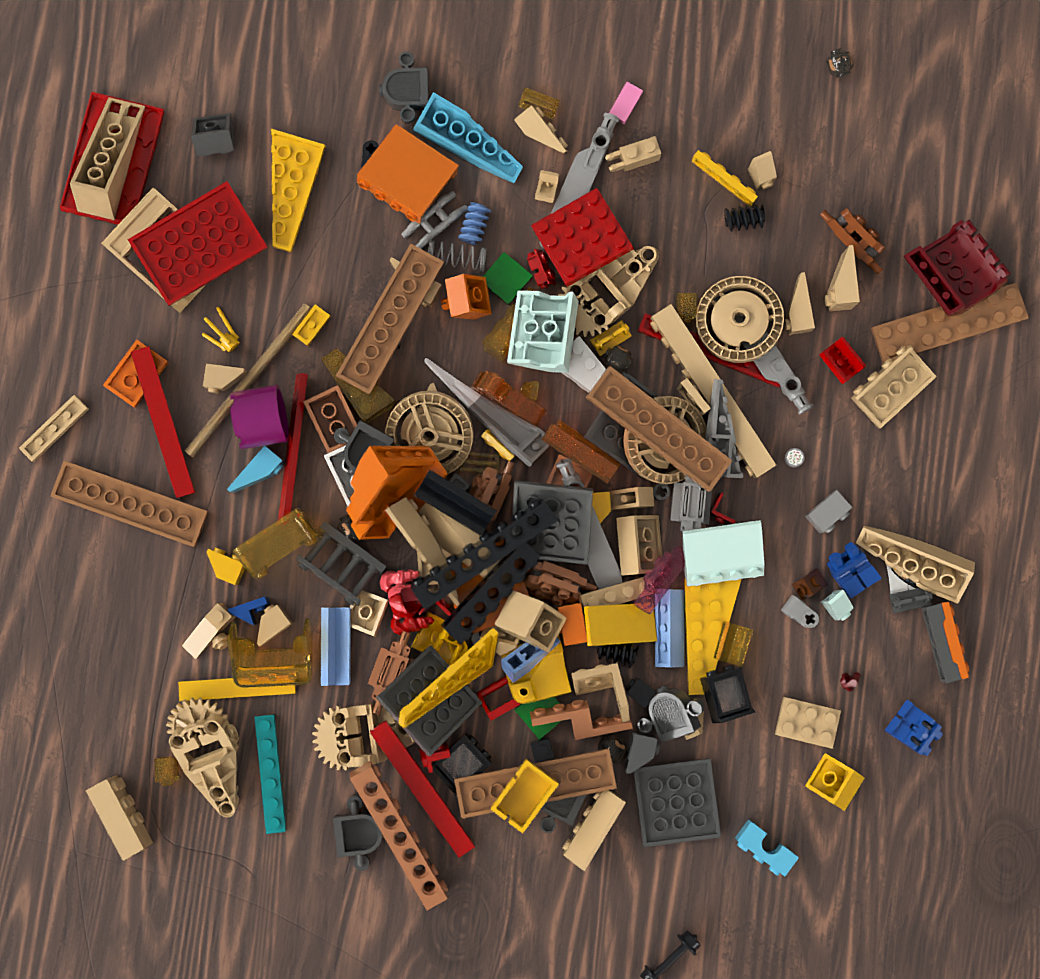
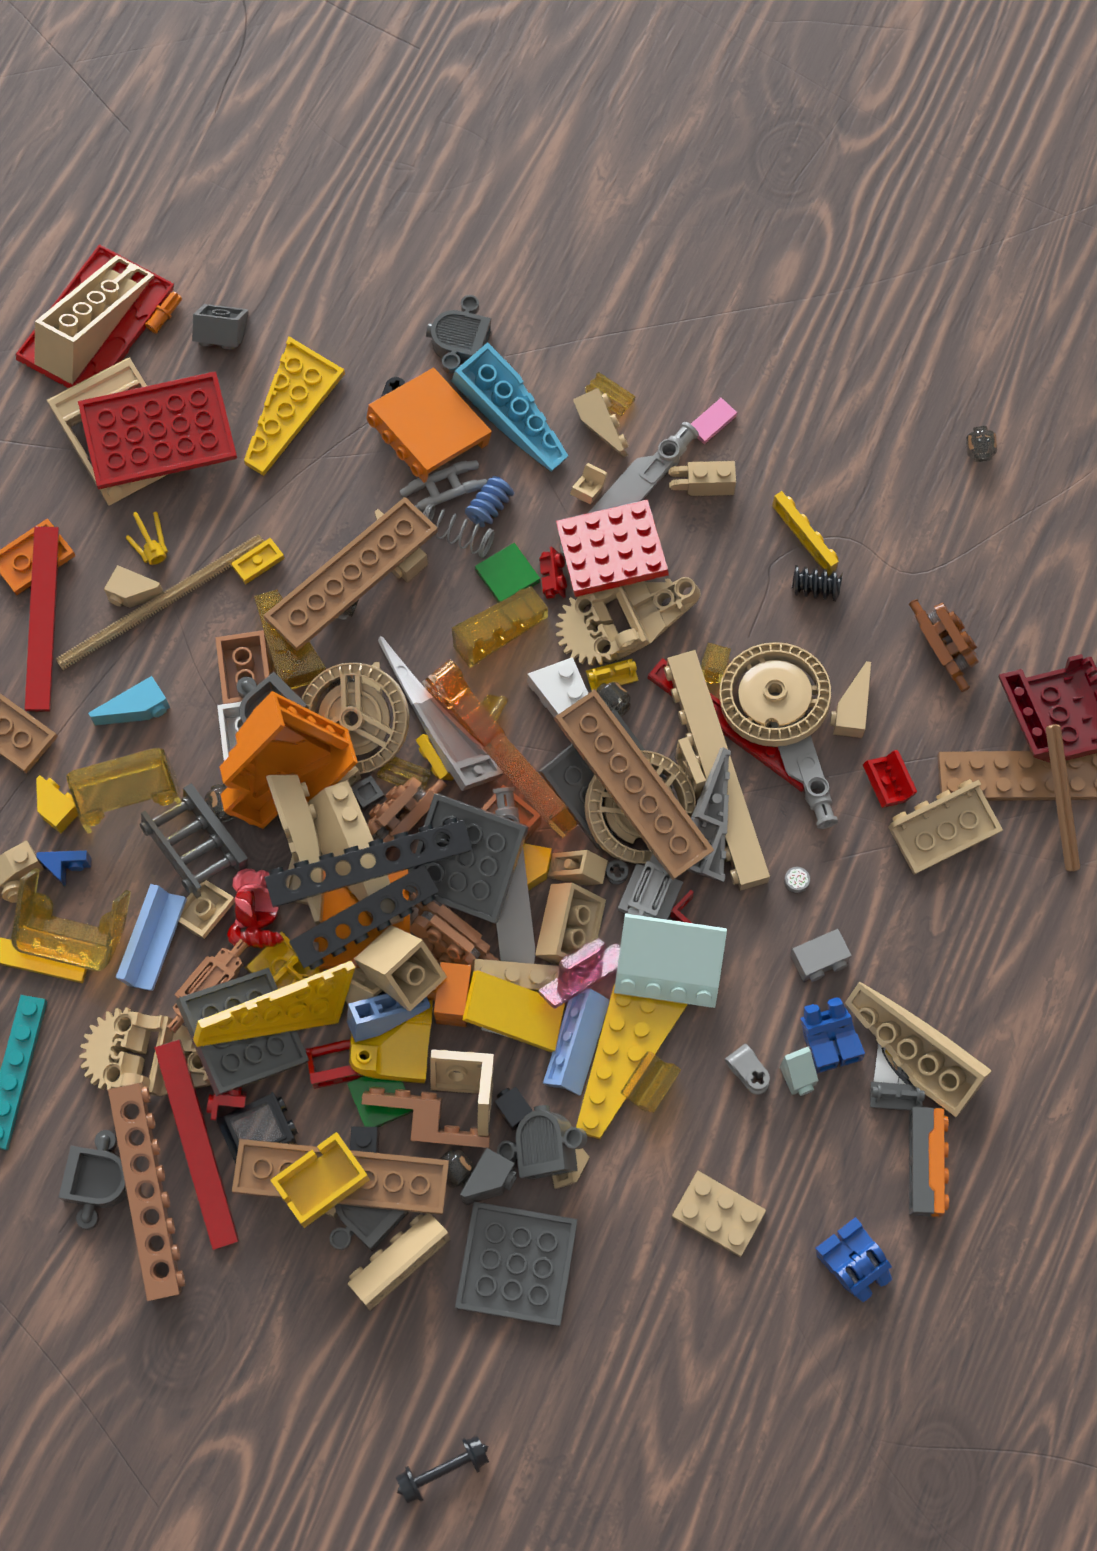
camera: 15 degrees right, 15 degrees down
(164, 136) = (163, 312): none -> orange axle
(259, 416) = (157, 639): magenta brick -> none
(272, 623) = (83, 889): tan slope -> none
(293, 445) = (191, 679): red tile -> none
(442, 604) = (287, 920): red bracket -> none
(455, 503) = (355, 797): black panel -> none
(467, 297) = (452, 576): orange brick -> none
(543, 331) = (530, 637): light aqua piece -> none
(618, 653) = (501, 1049): black piece -> none
(726, 694) = (622, 1141): black window -> none
(762, 171) = (853, 534): tan slope -> none
(779, 859) = (626, 1380): medium azure arch -> none
(810, 584) = (771, 1038): reddish brown bracket -> none
(834, 781) = (732, 1300): yellow slope -> none
(843, 289) = (912, 696): tan slope -> none
(849, 682) = (786, 1175): dark red plate -> none
(976, 340) = (1063, 797): none -> medium nougat axle

